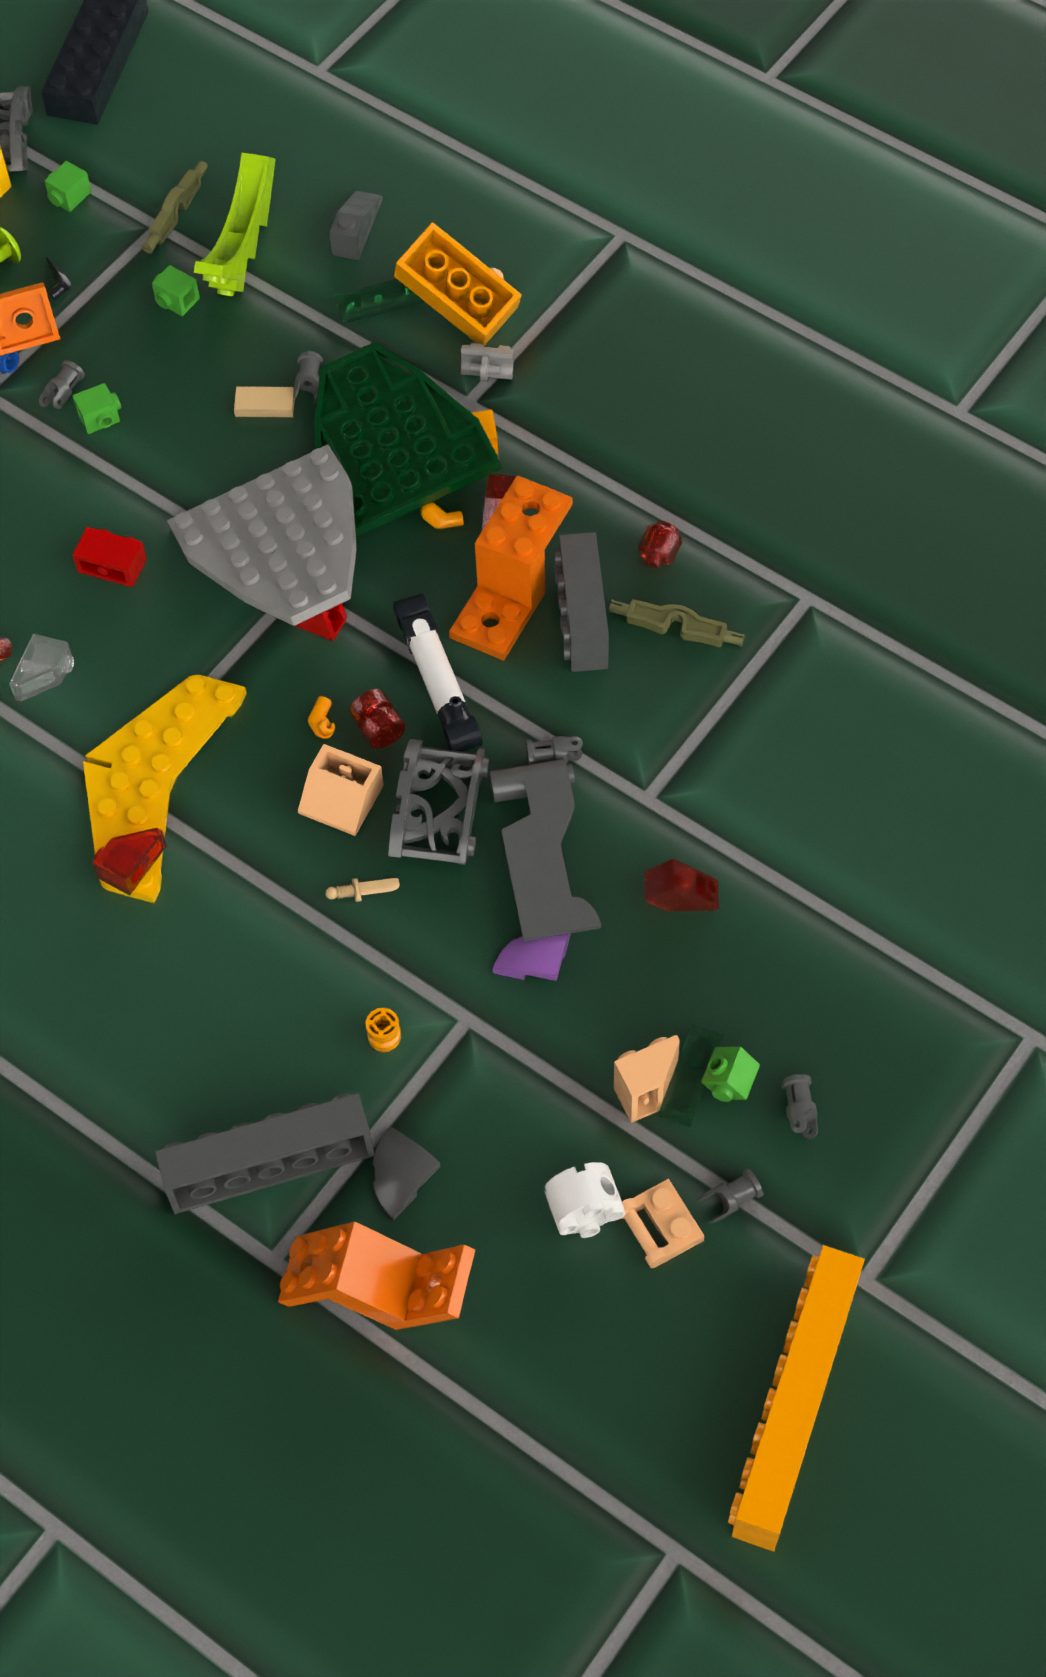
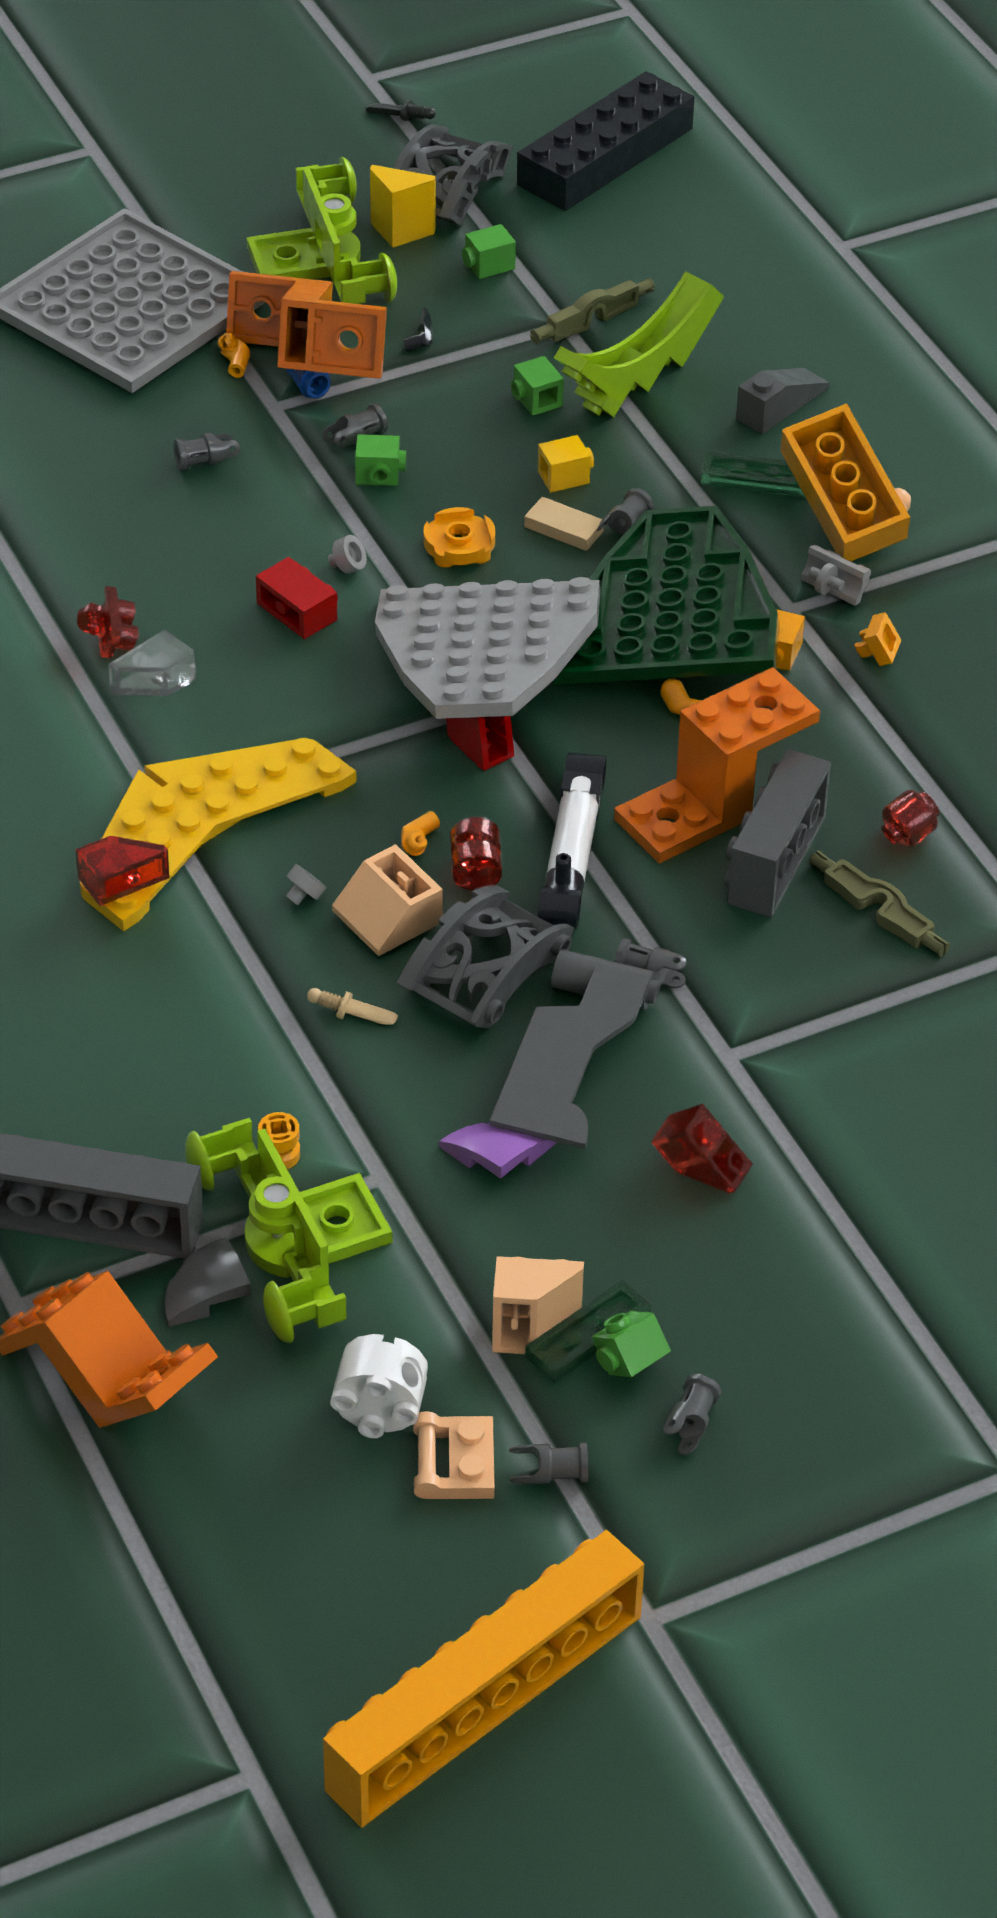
camera: 25 degrees right, 15 degrees down
(124, 502) = (348, 554): none -> light grey tile
(200, 462) = (472, 547): none -> light orange plate
(236, 350) = (564, 463): none -> yellow brick
(267, 802) = (303, 884): none -> light grey tile
(432, 1098) = (290, 1228): none -> lime piece
(551, 402) = (879, 640): none -> light orange tile

